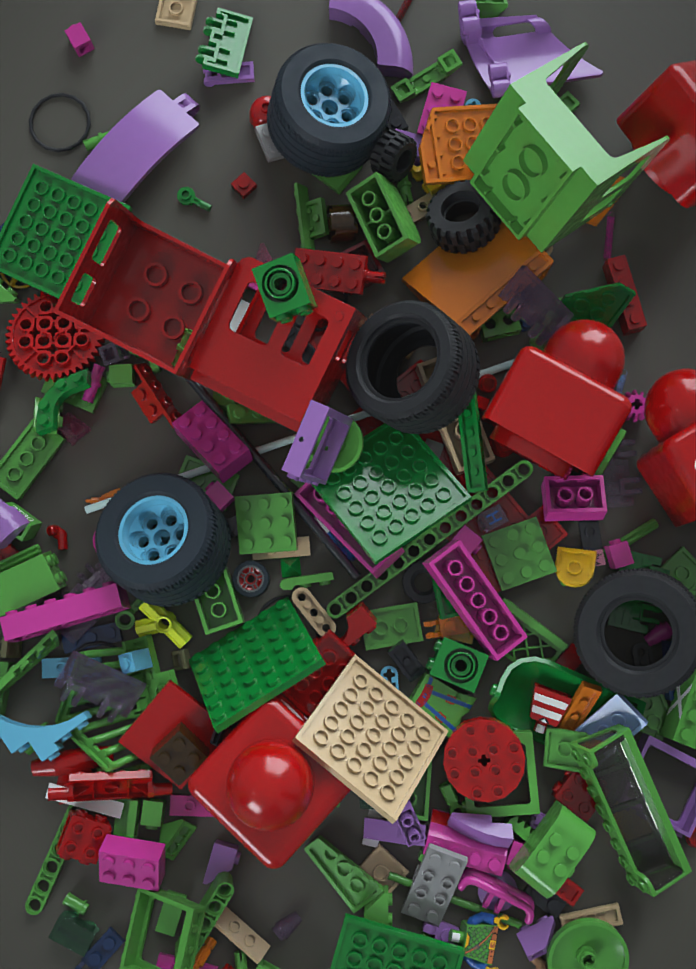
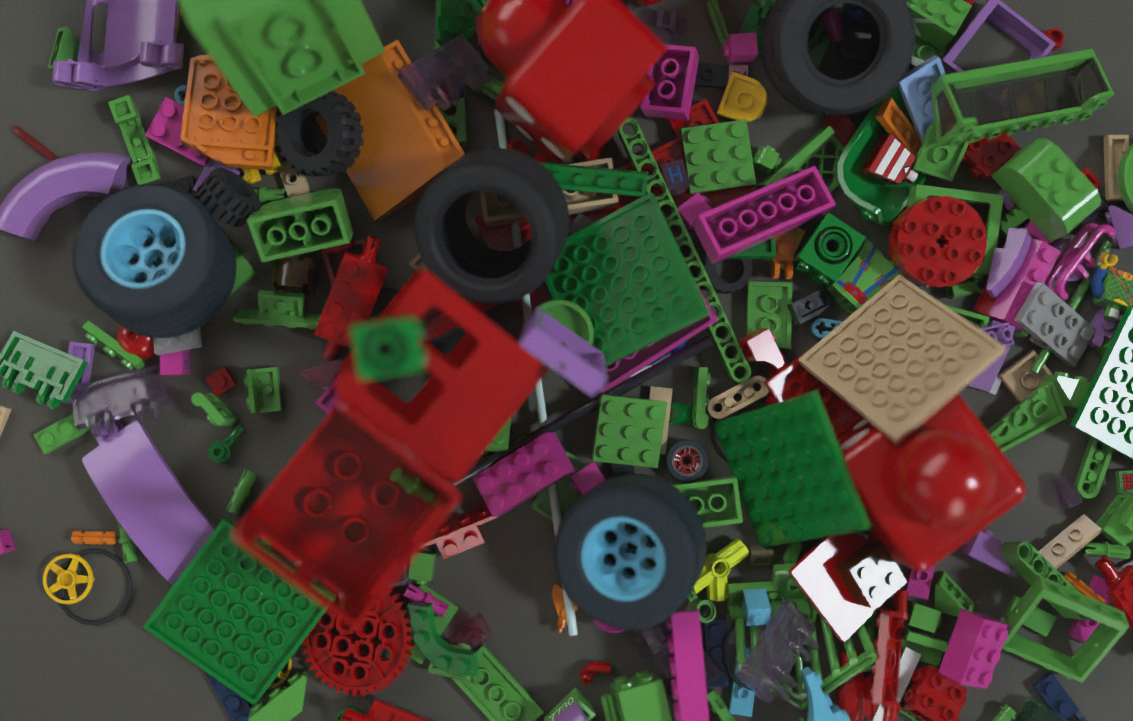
camera: 85 degrees left, 5 degrees up
(62, 101) = (68, 578): none -> yellow wheel
(99, 113) = (94, 537): none -> orange axle
(157, 219) = (241, 491): none -> bright green pin
(183, 76) = (60, 434): none -> bright green plate
(190, 687) = (792, 552): none -> bright green bar
(213, 105) = (117, 396): none -> clear purple hinge
(219, 184) = (217, 410): none -> bright green plate
(242, 219) = (263, 390): none -> bright green bracket
(251, 146) = (175, 363): none -> dark pink brick
(254, 93) = (112, 347): none -> bright green plate
(305, 949) = (1094, 477): none -> bright green plate
(526, 597) = (766, 159): none -> bright green plate

